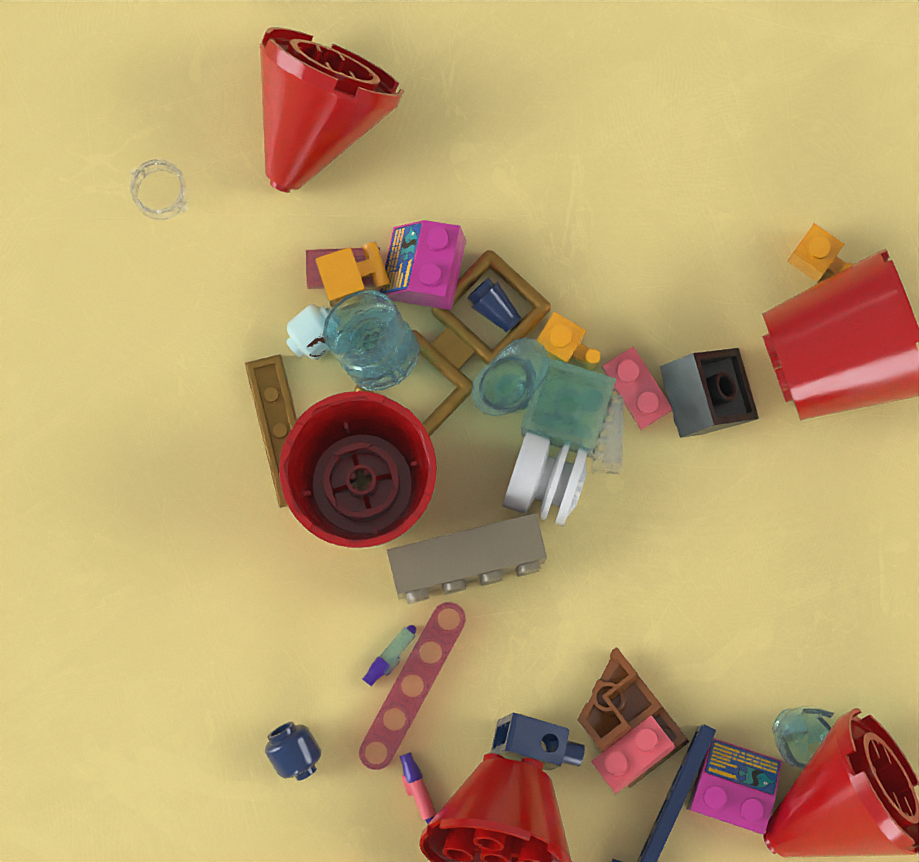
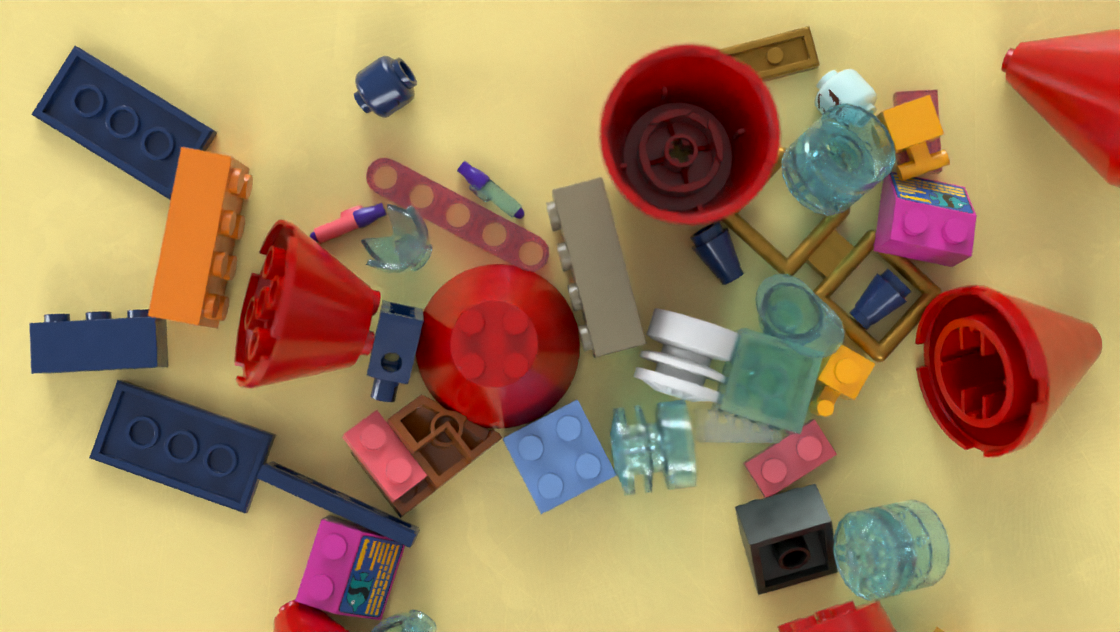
camera: 90 degrees right, 5 degrees up
(441, 733) = (407, 247): none -> clear light blue piece
(454, 447) = (717, 251): none -> dark blue cone
(532, 649) = (498, 346): none -> red cone
(557, 202) = (999, 366): none -> red cone
(627, 508) = (654, 447): none -> clear light blue wheel
(633, 594) = (559, 456): none -> medium blue brick
(718, 301) = (891, 549): none -> clear light blue wheel

